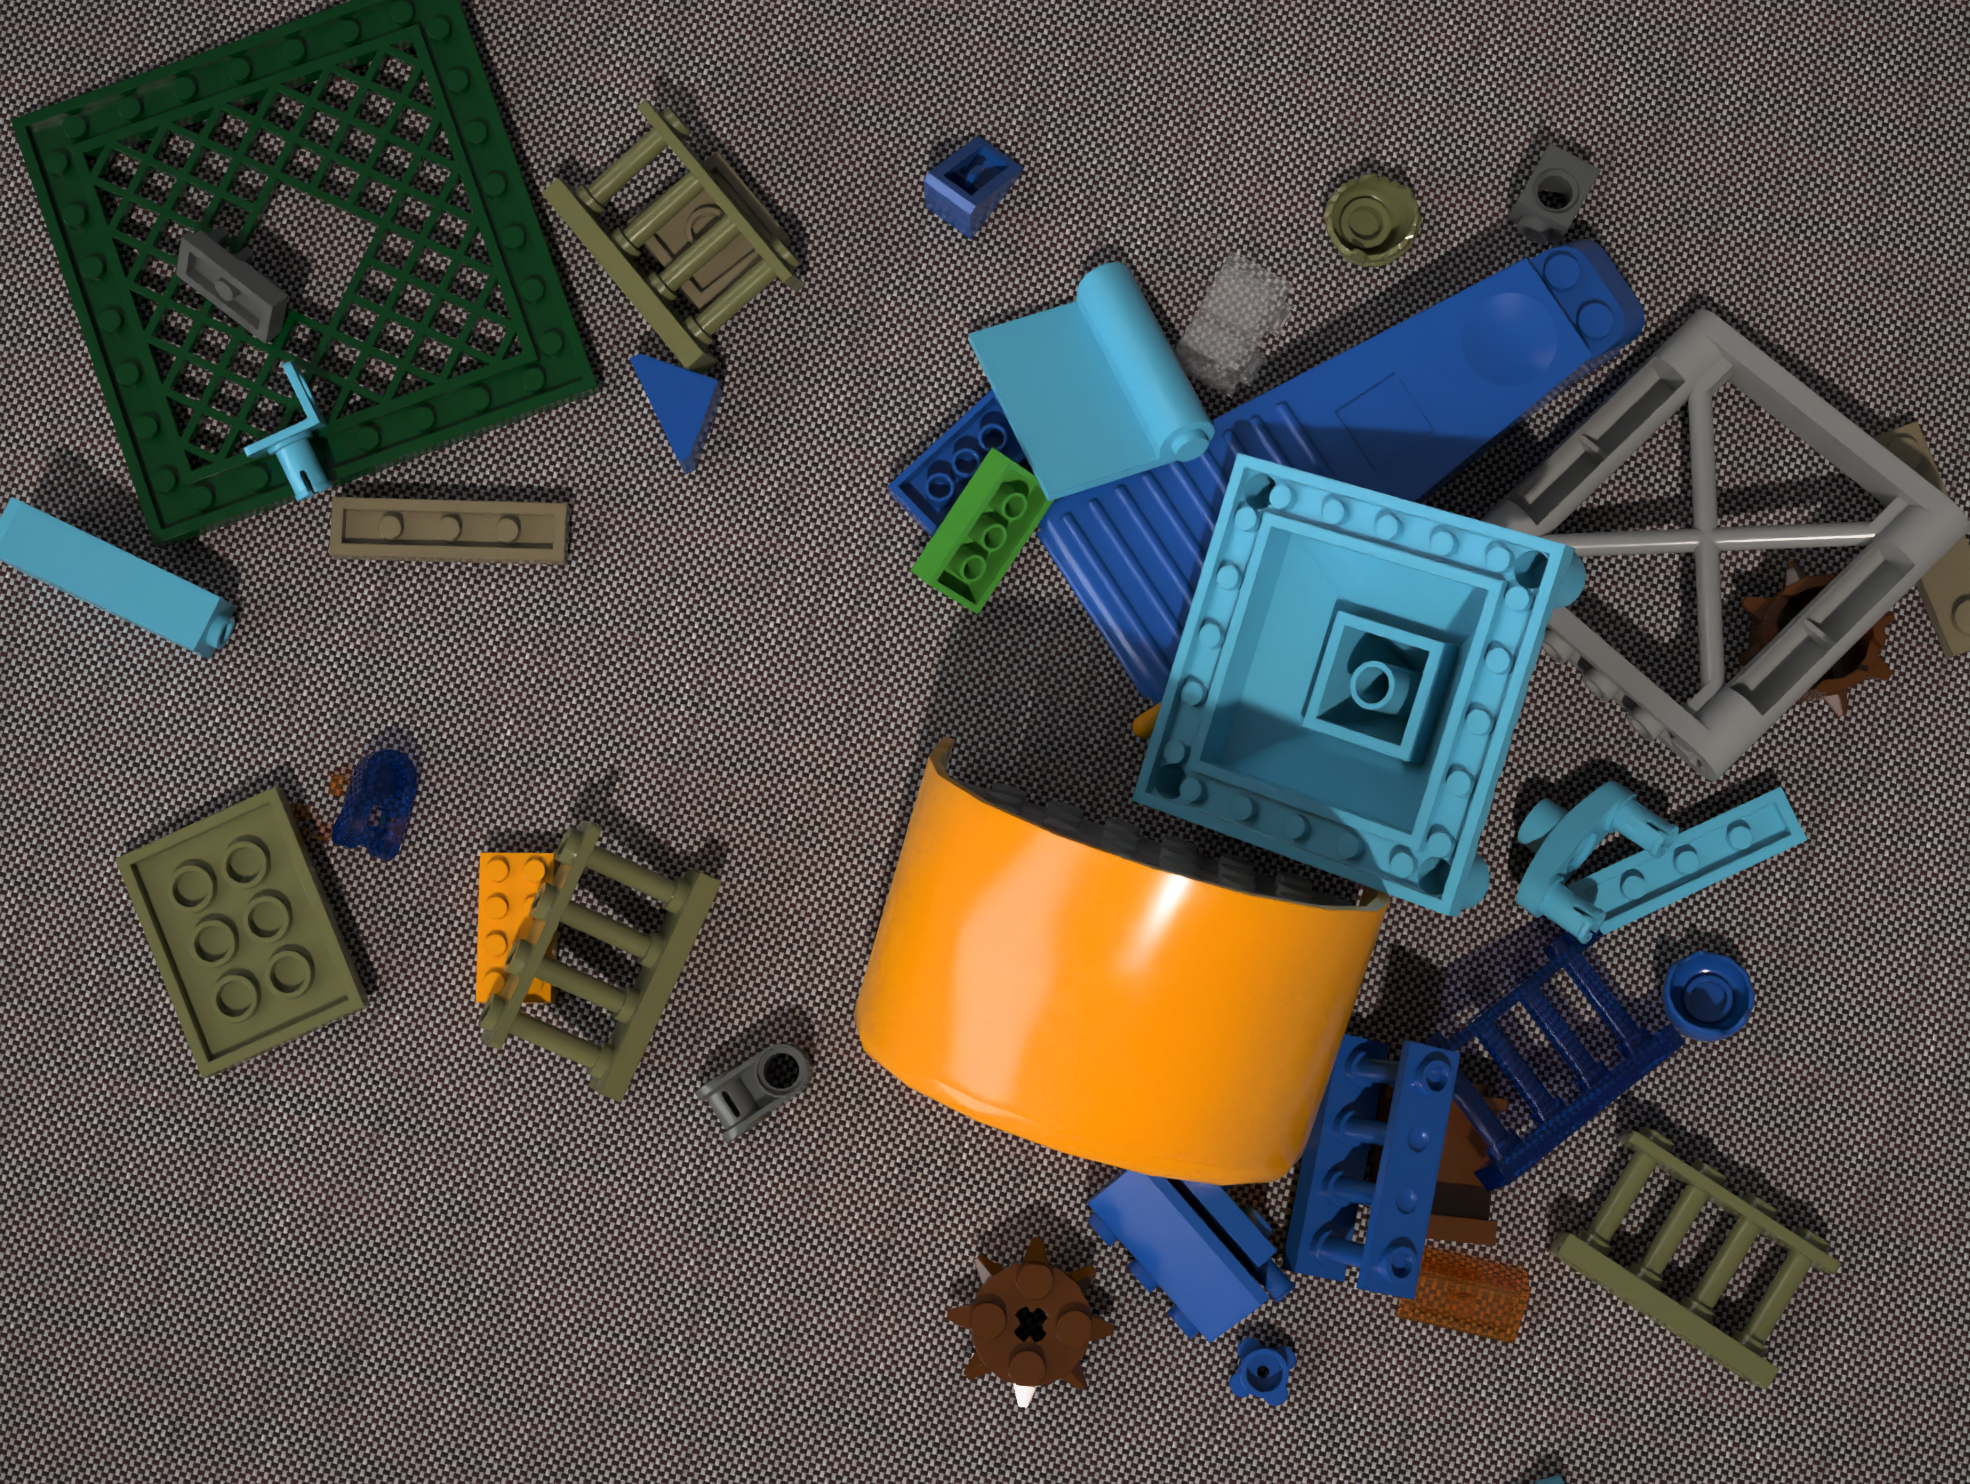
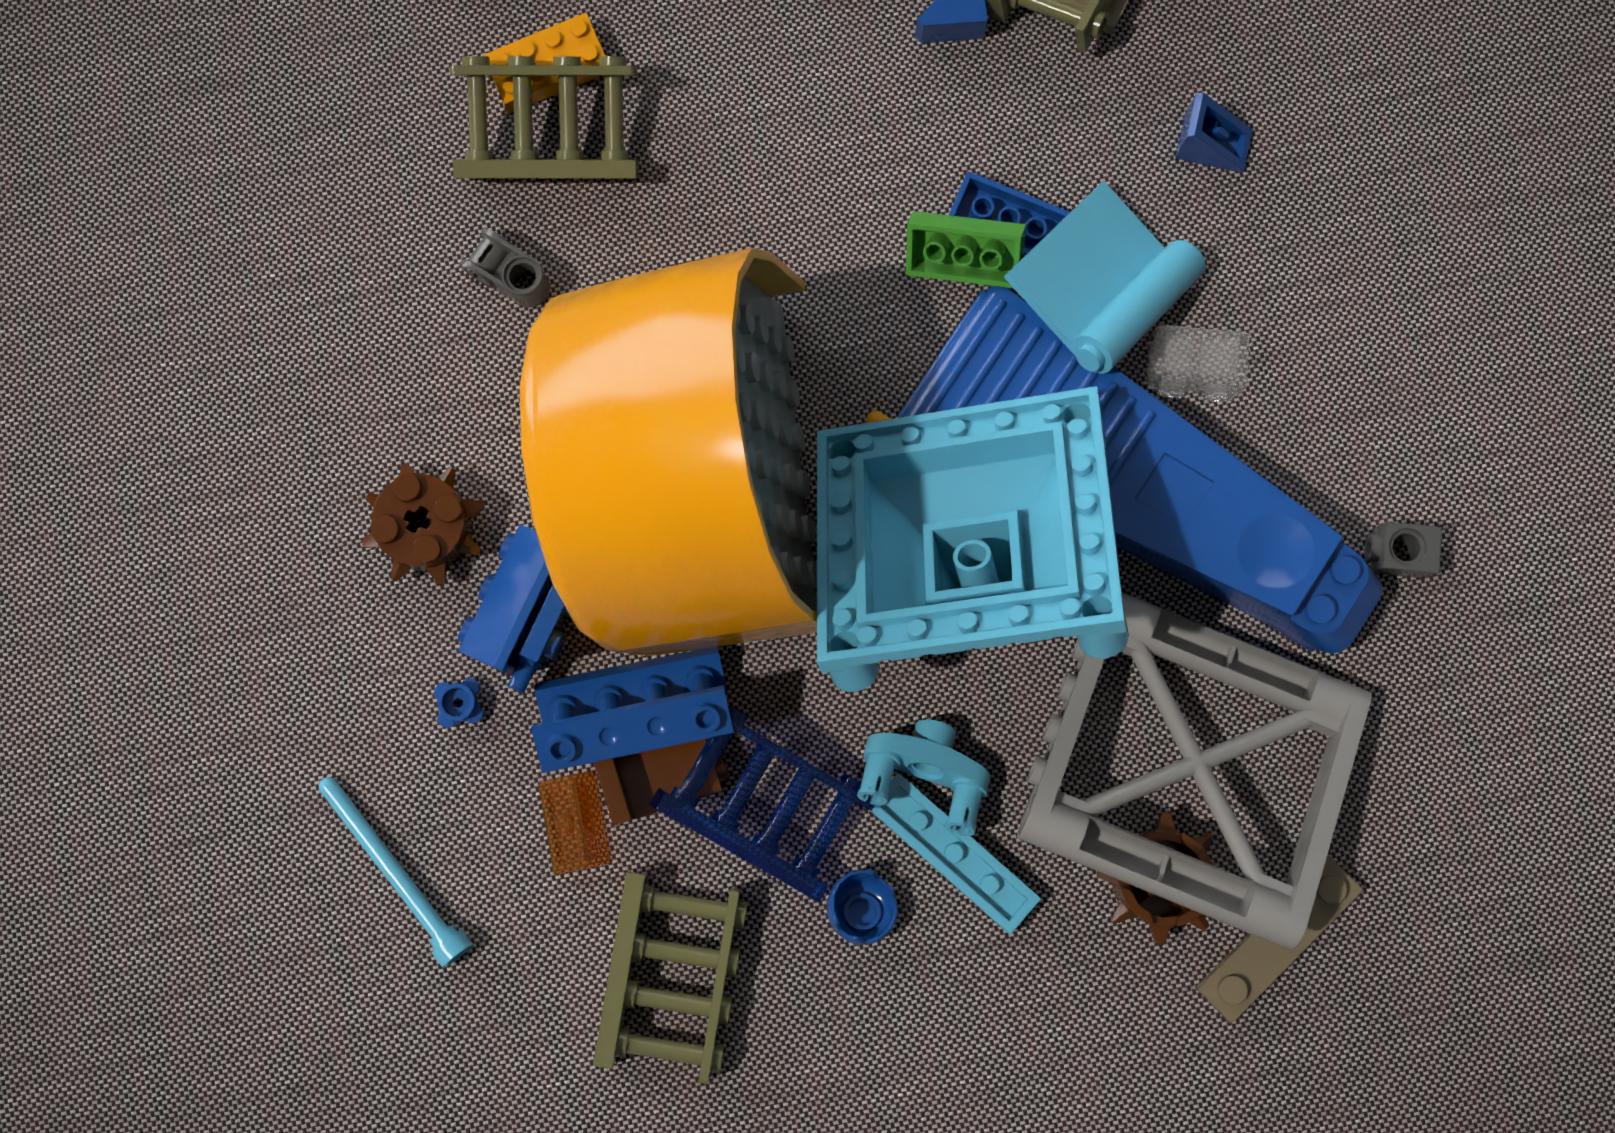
camera: 65 degrees right, 0 degrees up
(1372, 220) = (1322, 427): olive hair -> none

